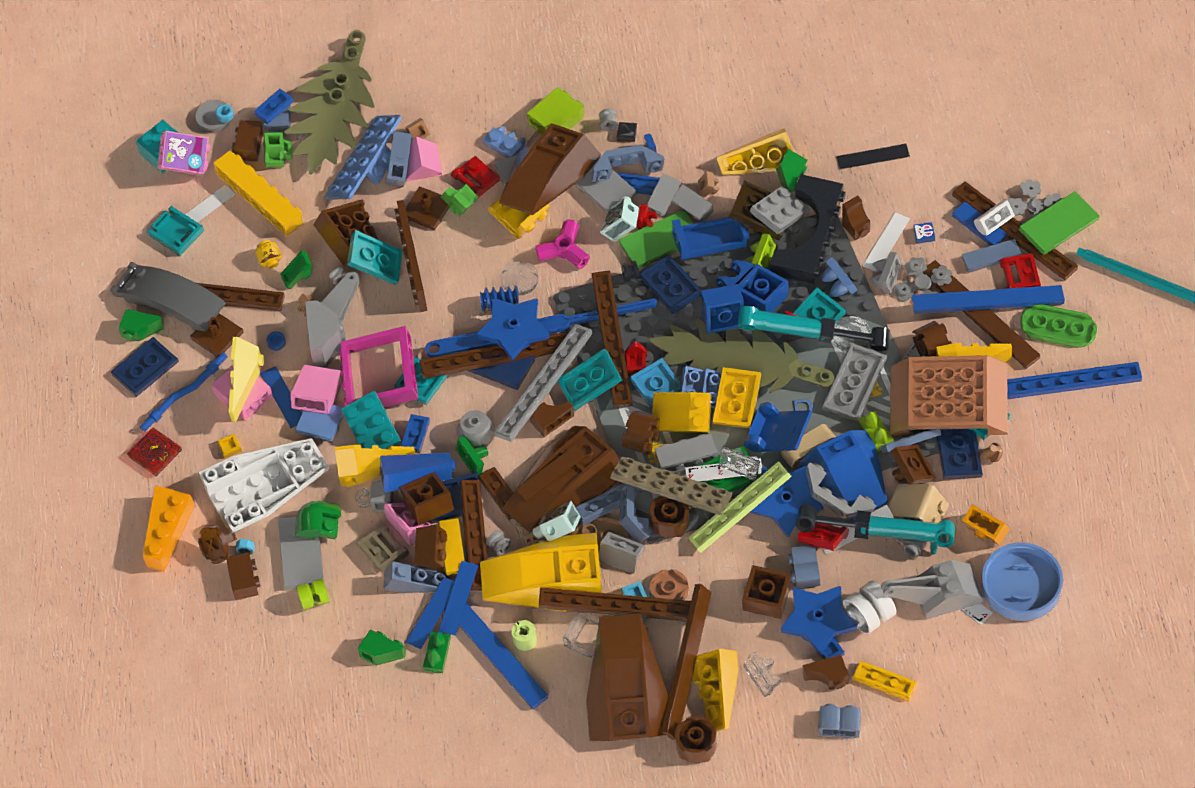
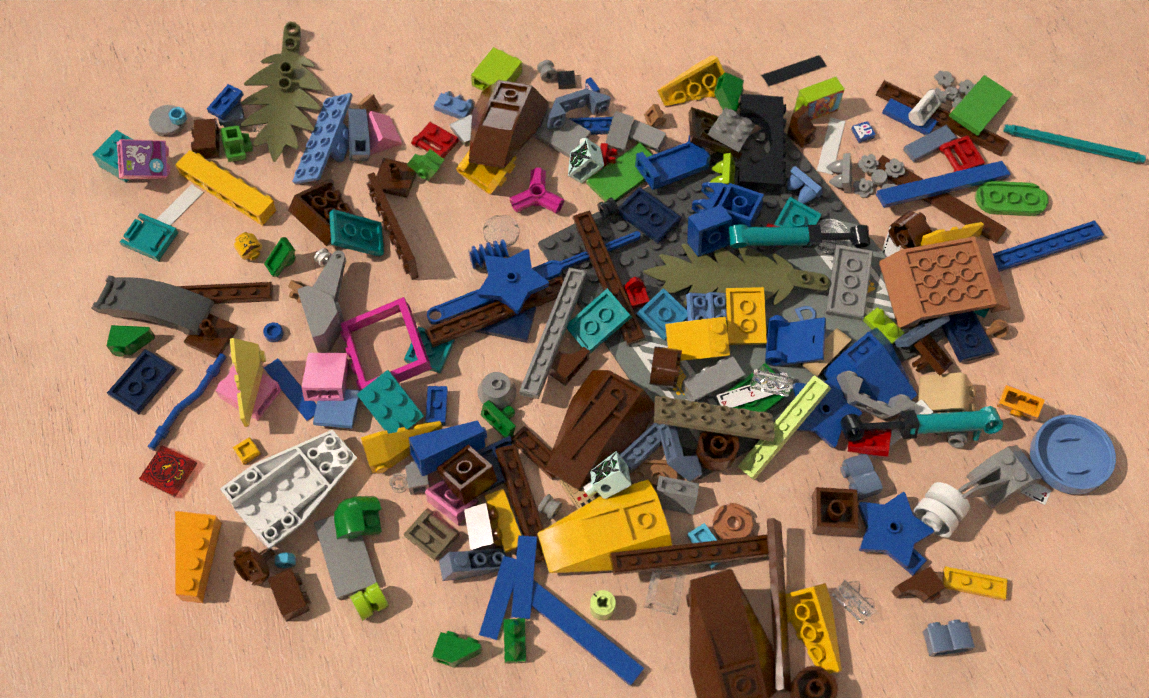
camera: 20 degrees left, 5 degrees up
(882, 192) = (821, 98): none -> lime brick

